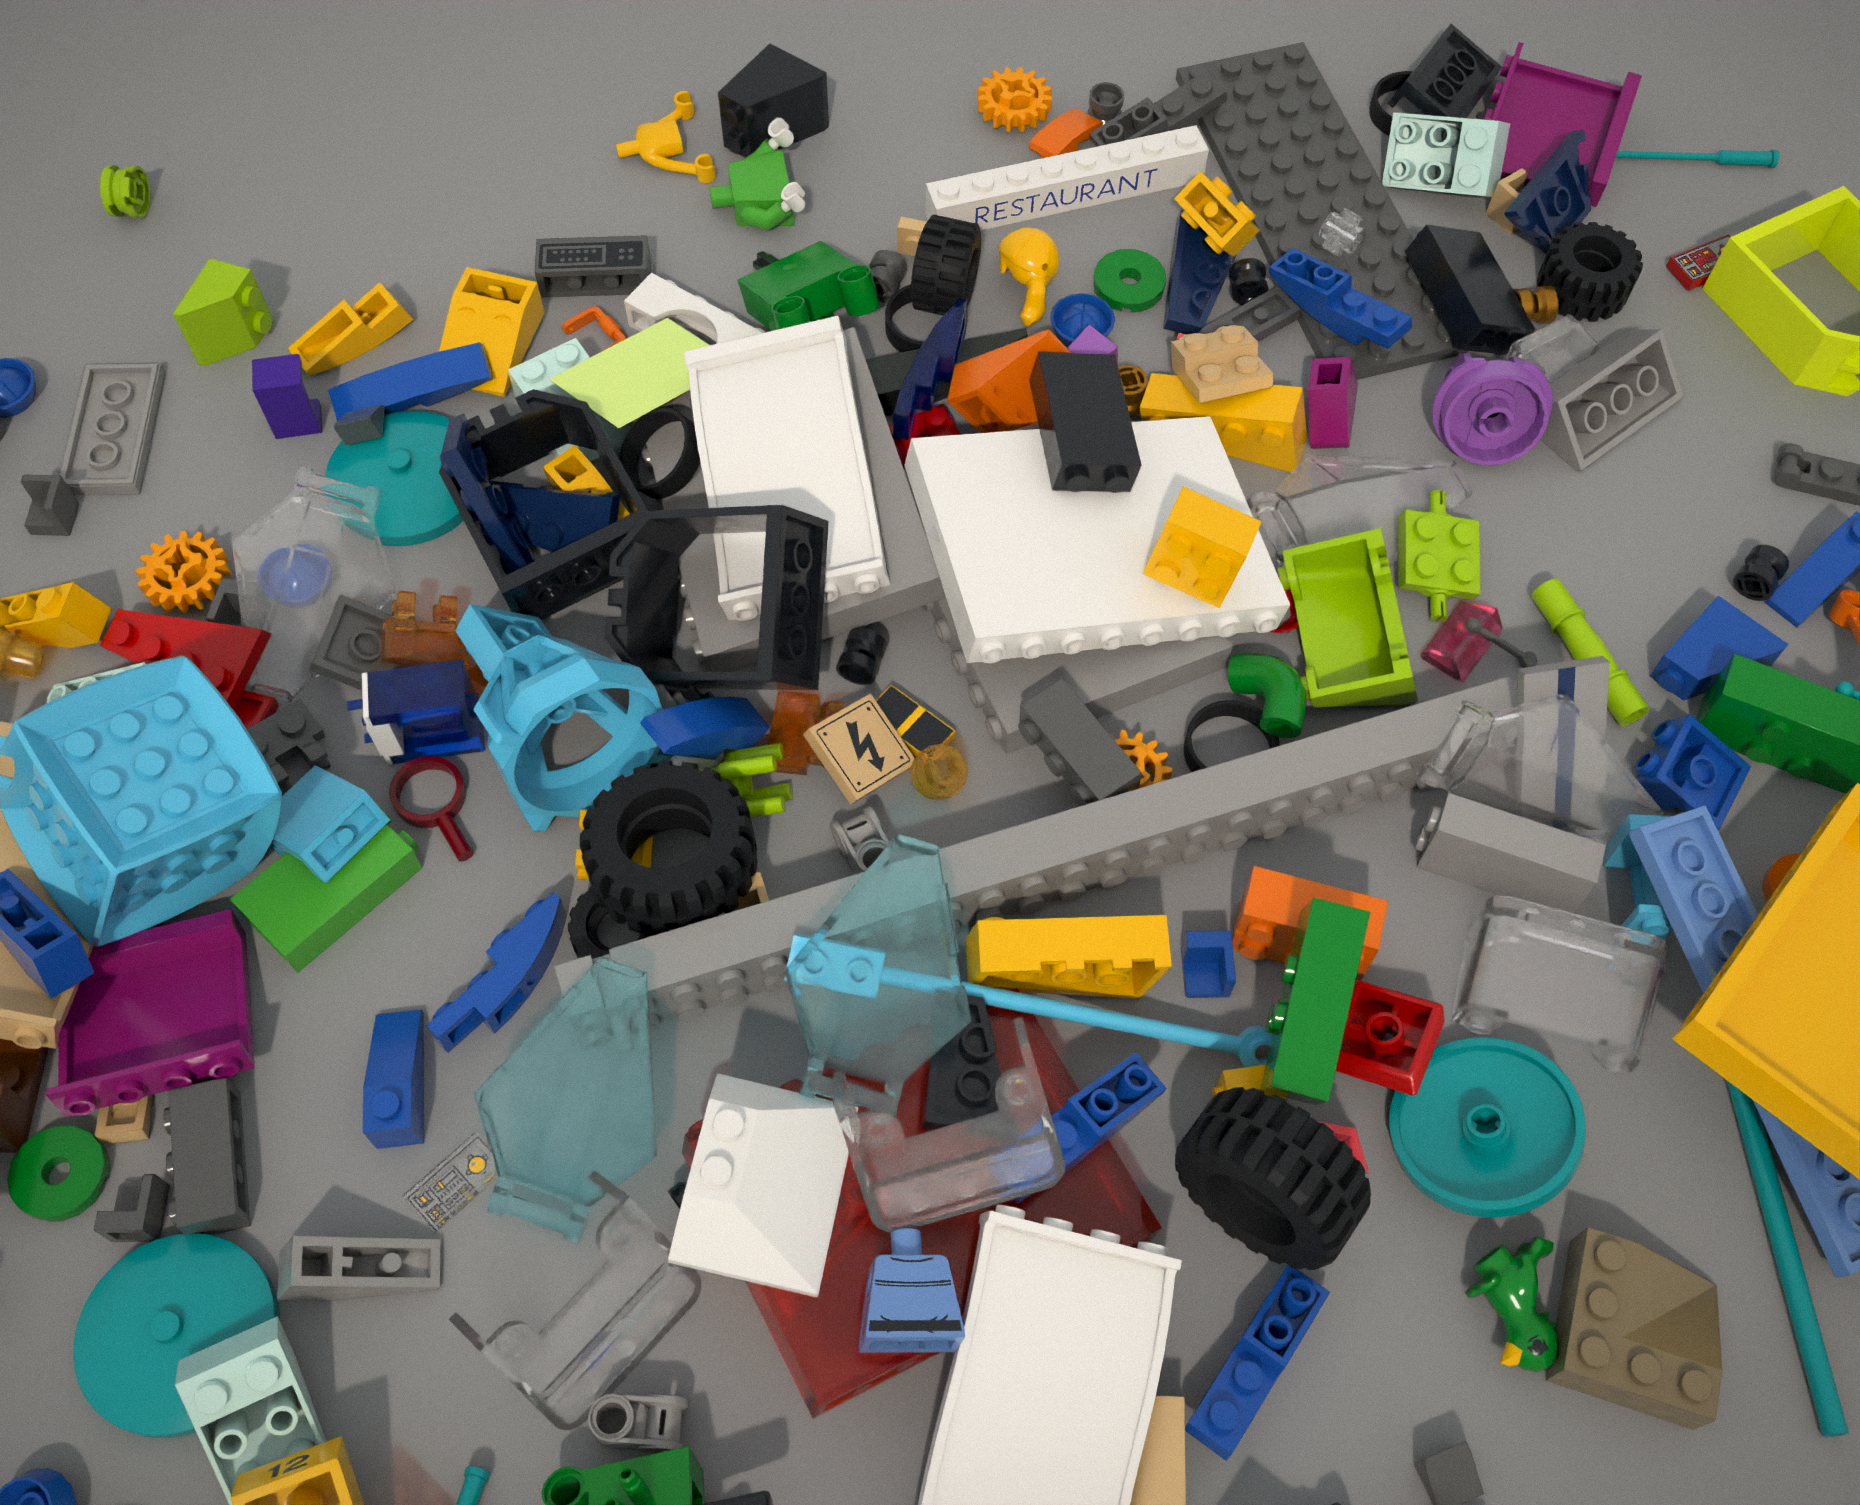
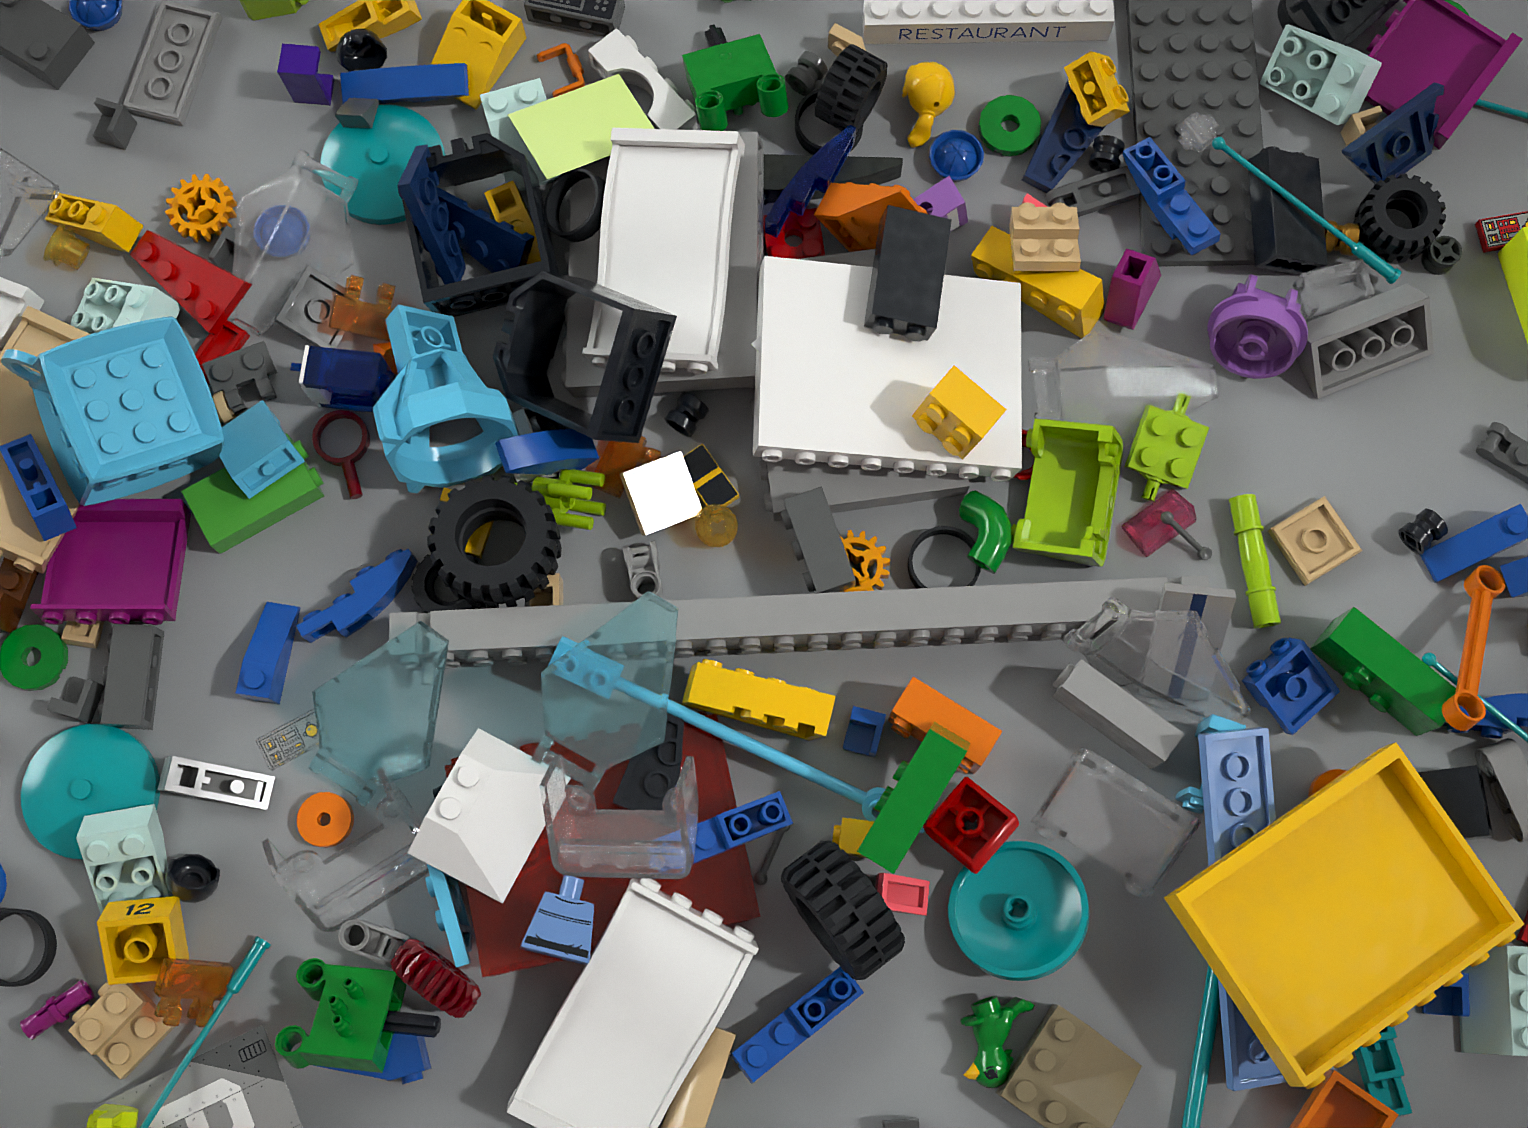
camera: 20 degrees right, 15 degrees up
(347, 358) = (361, 50): none -> black hair
(354, 1409) = (192, 878): none -> black hair
(538, 1295) = (310, 815): none -> orange piece
(741, 1346) = (452, 914): none -> medium azure wing
(747, 1439) = (435, 978): none -> dark red gear
(1134, 385) = (967, 239): pearl gold wheel -> none
(1144, 1117) = (760, 877): none -> dark grey hinge
(1561, 307) = (1358, 249): none -> teal piece
(1644, 615) = (1314, 541): none -> tan tile
(1648, 299) = (1449, 254): none -> pearl dark grey wheel
(1709, 645) = (1357, 583): blue slope -> none

